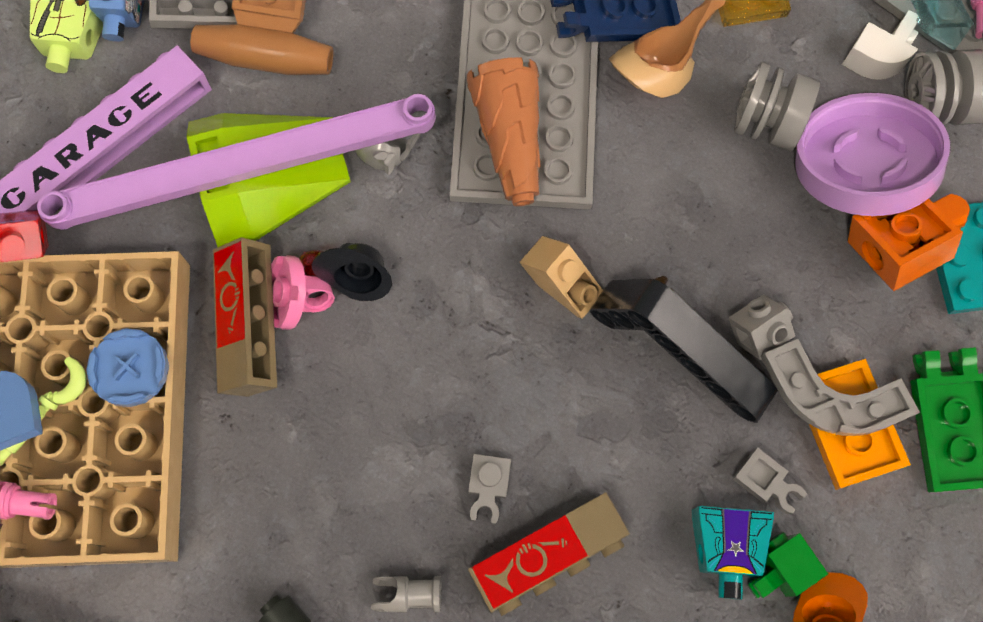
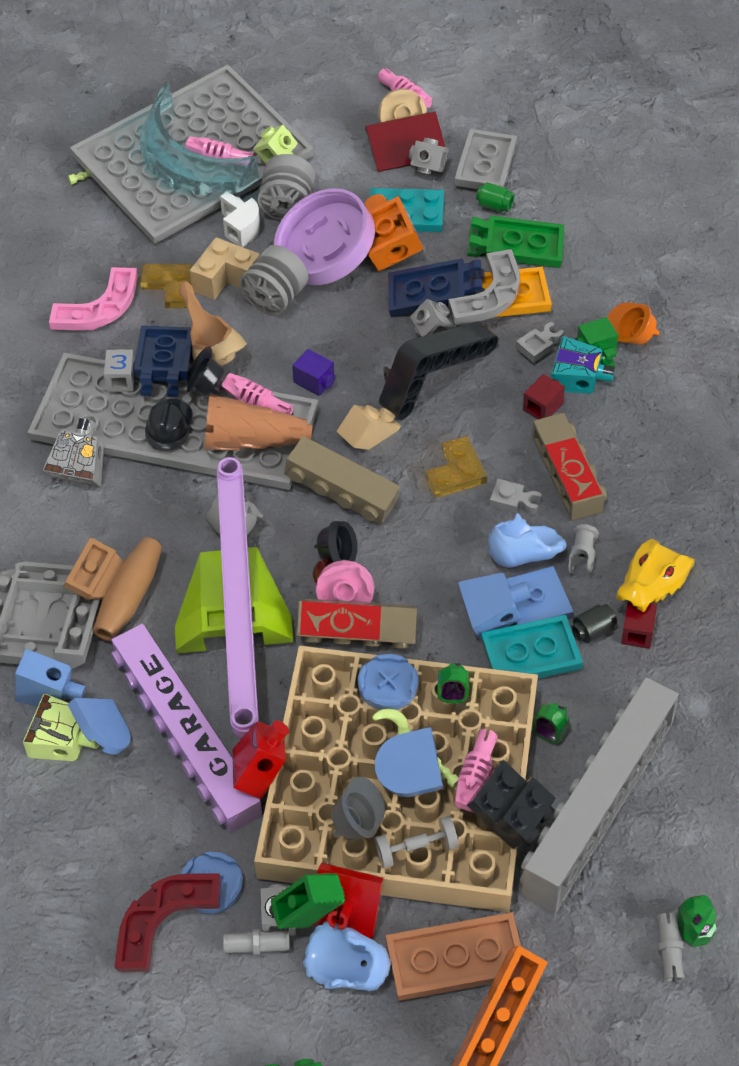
camera: 75 degrees left, 20 degrees down
(64, 63) = (102, 722): none -> medium blue tile
(119, 448) = (453, 683): none -> green rock
(122, 589) = (551, 723): none -> green rock
(236, 546) = (533, 647): none -> teal plate
(294, 481) = (492, 601): none -> medium blue torso
(325, 540) = (547, 596): none -> medium blue plate
(403, 514) = (519, 543): none -> light blue piece
(459, 256) = (341, 480): none -> dark tan brick
(514, 33) = (168, 424): none -> black piece
(521, 412) = (460, 473): none -> clear yellow plate
(571, 125) = (253, 394): none -> bright pink hinge
(585, 60) = (205, 374): none -> black piece
(639, 190) = (313, 372): none -> dark purple brick
(665, 502) = (543, 397): none -> dark red brick
(788, 37) = (220, 265): none -> tan brick
(830, 317) = (434, 282): none -> dark blue tile

